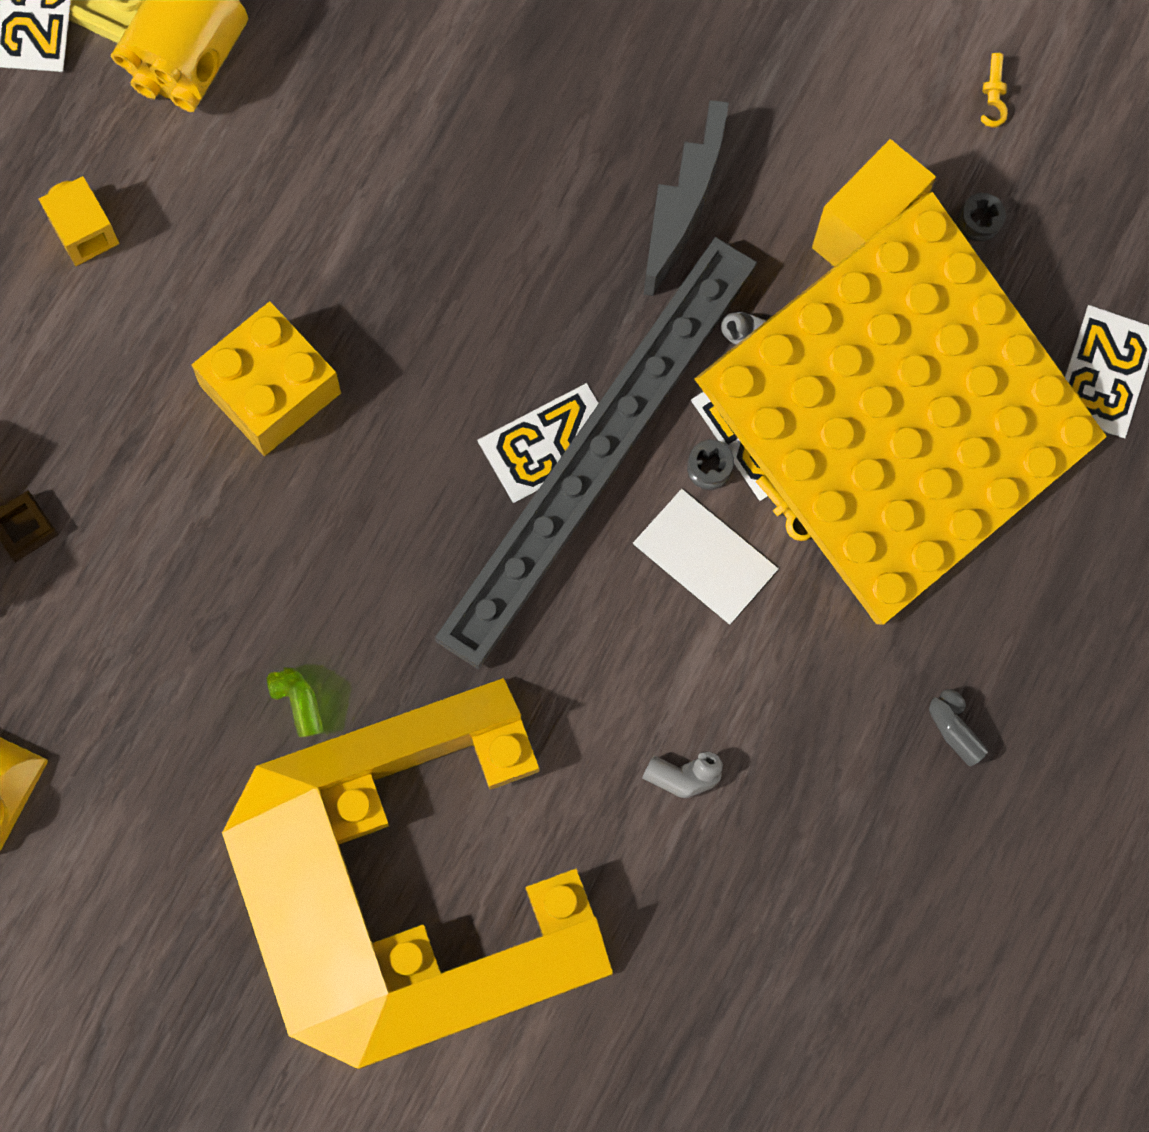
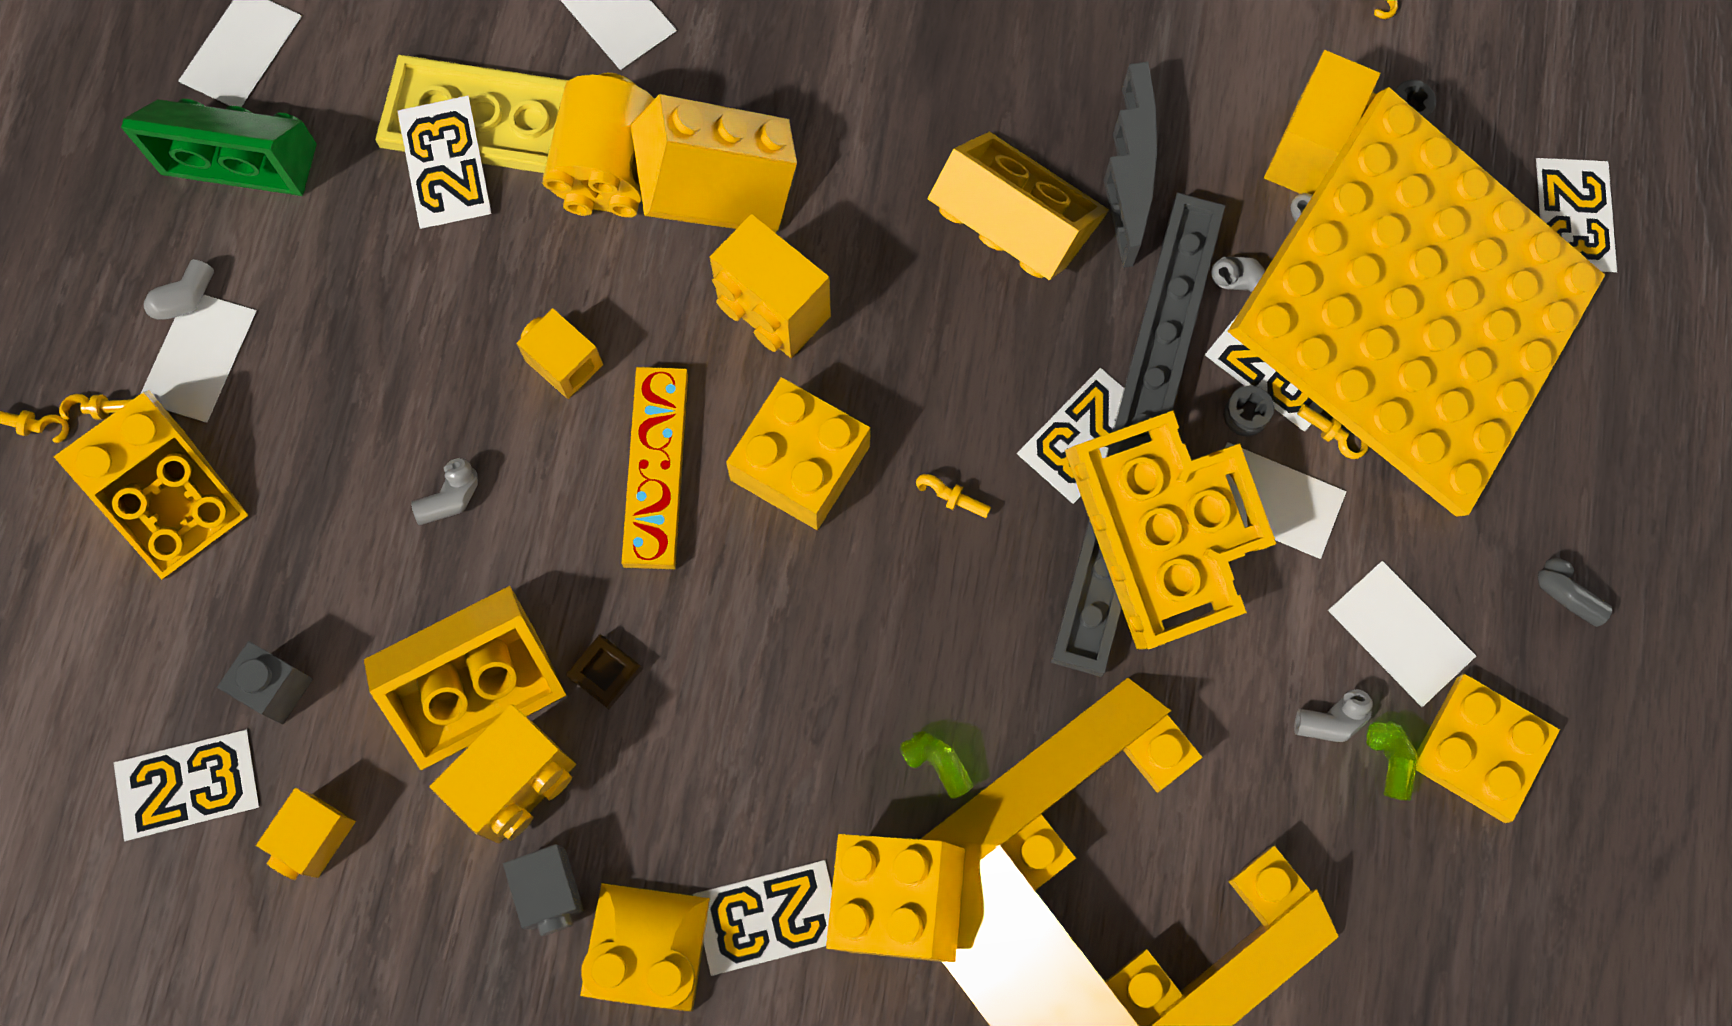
camera: 15 degrees left, 0 degrees up
(97, 794) = (767, 917): none -> sticker
(132, 353) = (655, 468): none -> yellow tile
(209, 806) = (896, 897): none -> yellow brick
(276, 84) = (712, 163): none -> yellow slope
(290, 215) = (770, 287): none -> yellow brick
(400, 461) = (953, 496): none -> yellow hand
(557, 203) = (1016, 205): none -> yellow slope
(581, 544) = (1169, 526): none -> yellow piece
(731, 829) = (1400, 755): none -> clear neon green arm
(781, 717) = (1402, 633): none -> white sticker
(817, 845) = (1485, 748): none -> yellow plate

